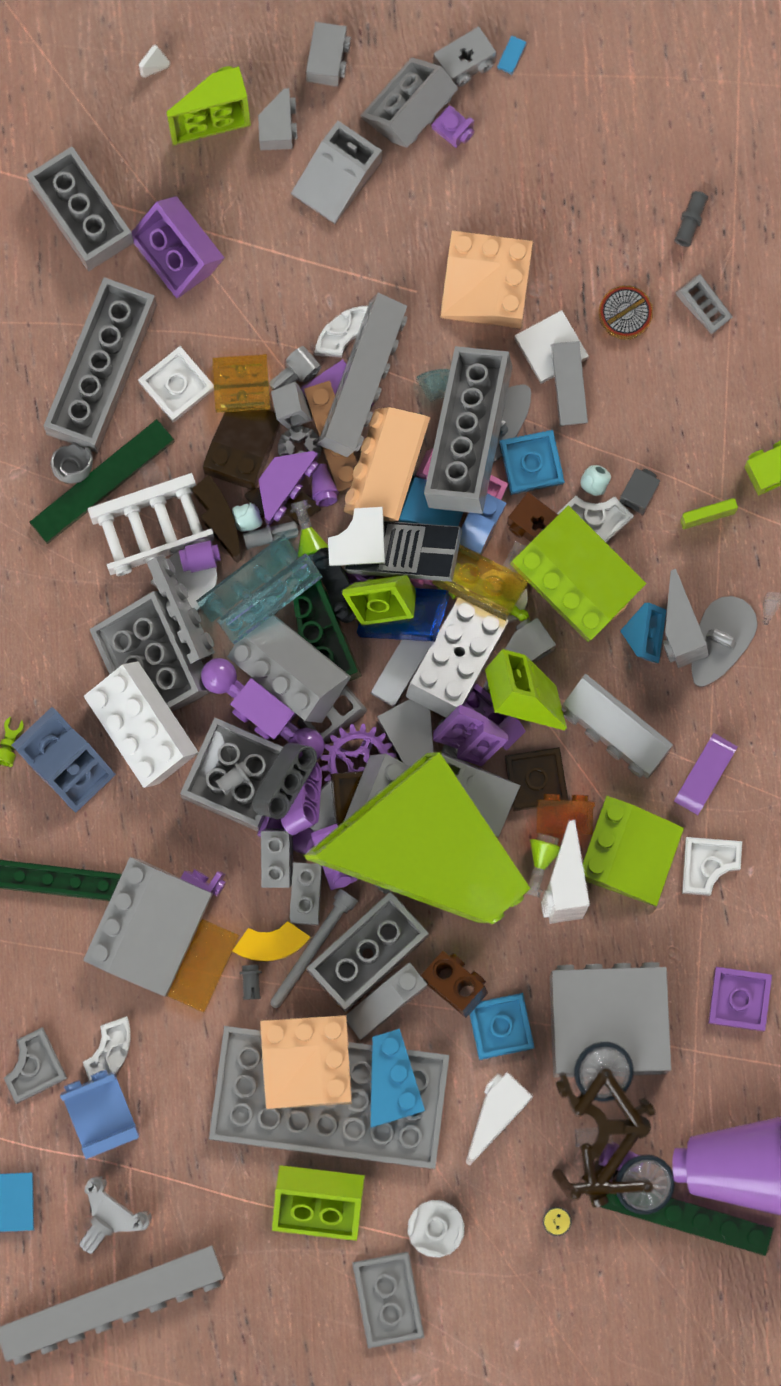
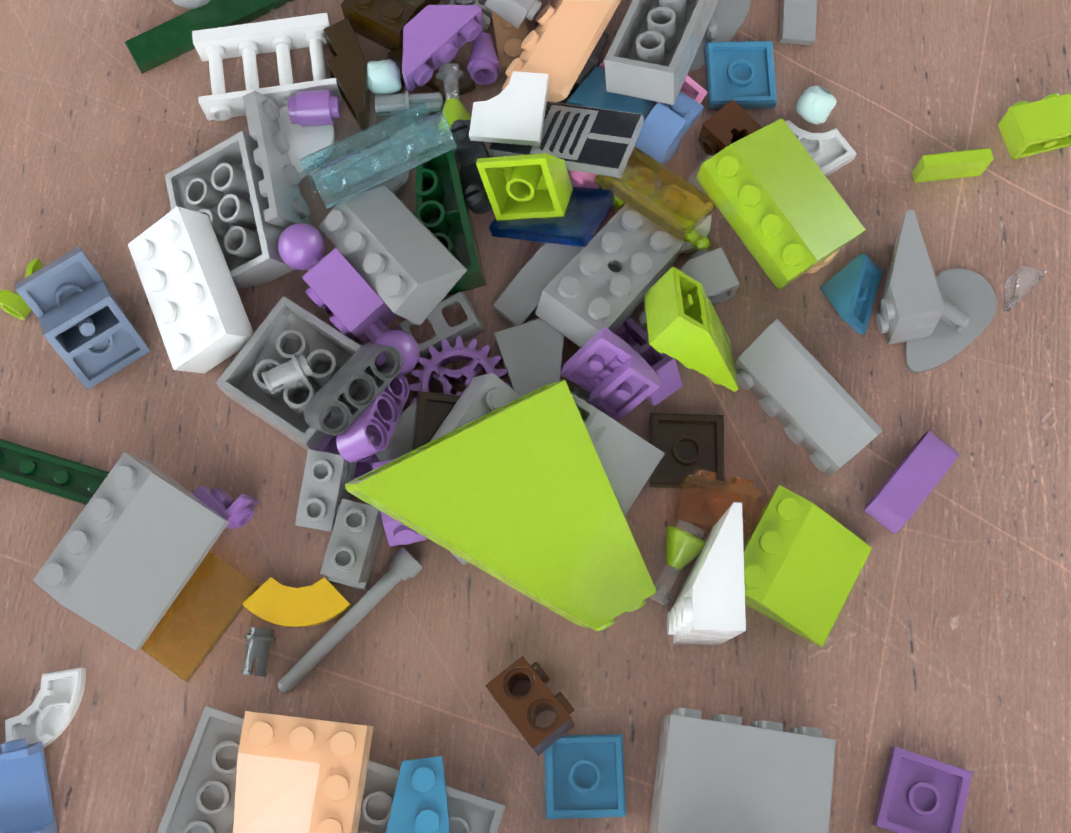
camera: 10 degrees right, 5 degrees down
(385, 1001) = (432, 711): light grey slope -> none
(386, 931) = (383, 653): light grey brick -> none
(640, 490) = (869, 125): dark grey brick -> none
(707, 861) = (897, 599): white tile -> none

